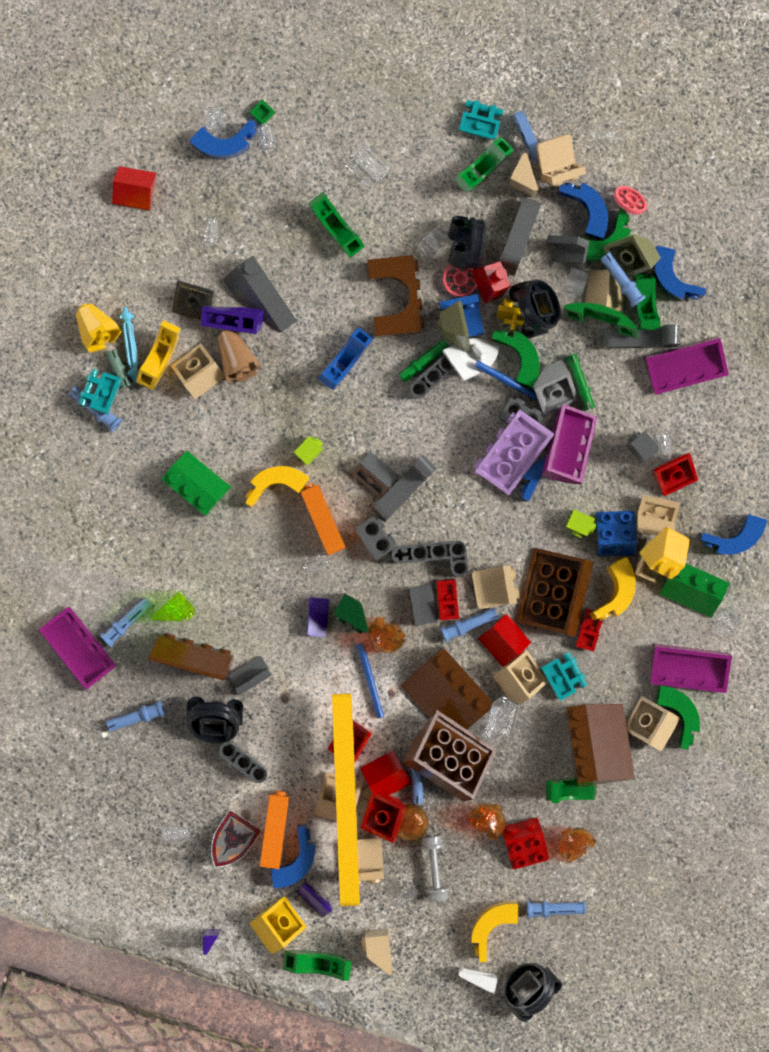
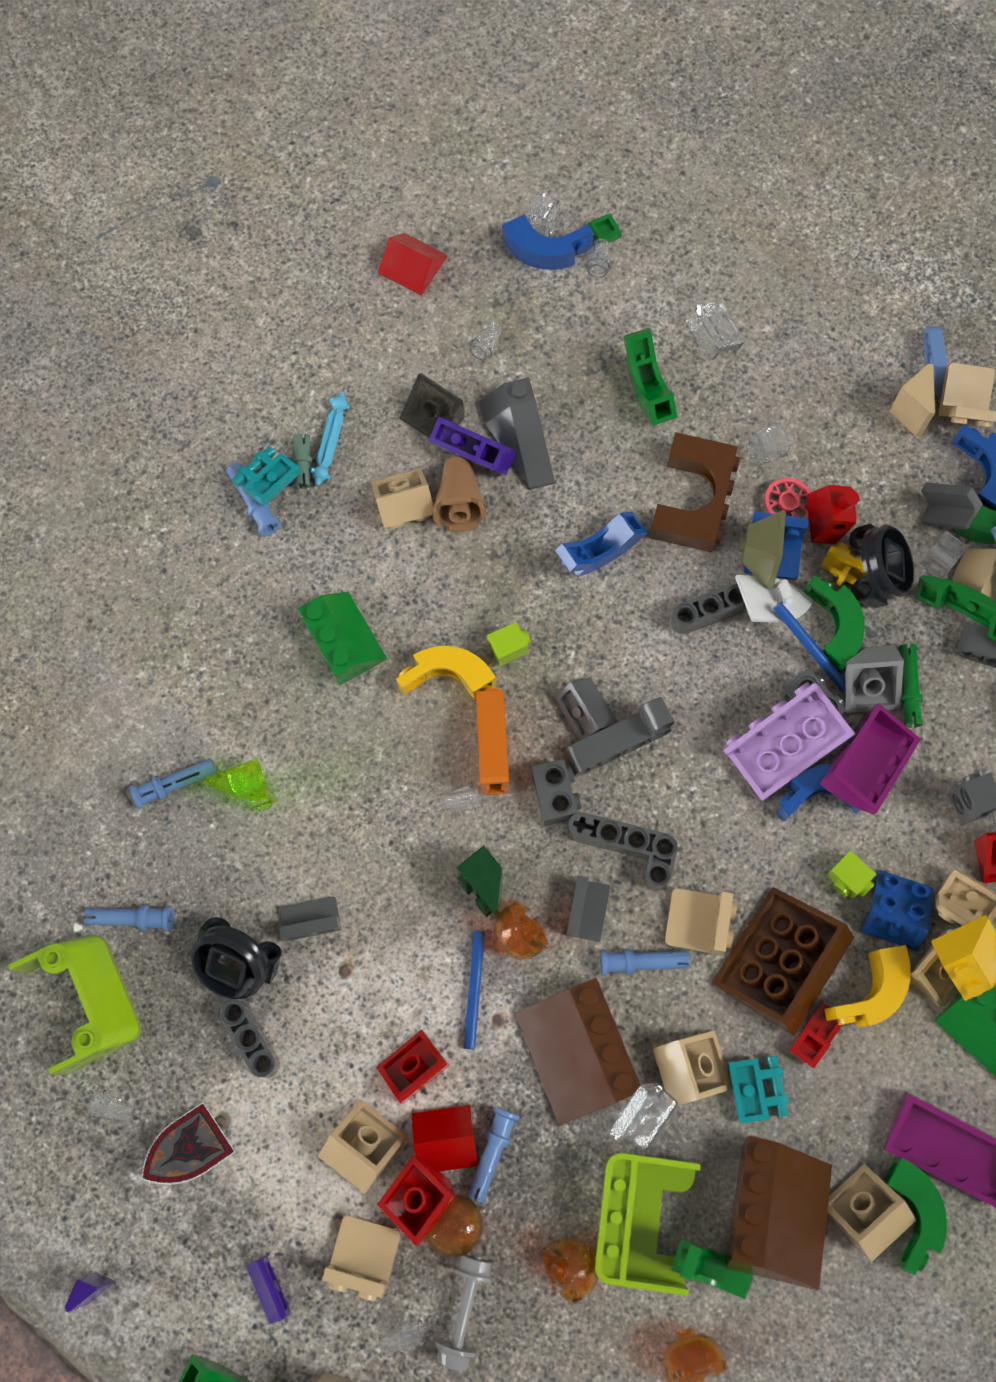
camera: 25 degrees right, 15 degrees down
(77, 648) = (92, 794): magenta slope -> none
(96, 328) = (295, 402): yellow cone -> none
(138, 767) = (101, 992): none -> lime windscreen
(159, 355) = (363, 461): yellow arch -> none
(192, 657) = (239, 859): reddish brown slope -> none
(275, 830) = (251, 1159): orange slope -> none
(278, 925) = (198, 1309): yellow slope -> none
(296, 870) = (246, 1235): blue arch -> none
(318, 617) = (434, 872): dark purple slope -> none
(345, 799) = (368, 1155): yellow beam -> none
(420, 363) = (700, 586): green pin -> none
(447, 599) = (625, 914): red slope -> none
(450, 756) = (548, 1145): reddish brown slope -> none
(469, 242) = (815, 451): black piece -> none
(479, 125) = (877, 328): teal plate -> none
(484, 165) = (869, 374): green arch -> none
(504, 640) = (686, 1004): red slope -> none
(514, 779) = (632, 1218): none -> lime windscreen
(519, 235) = (887, 470): dark grey beam -> none
(525, 843) = (615, 1328): red bracket -> none

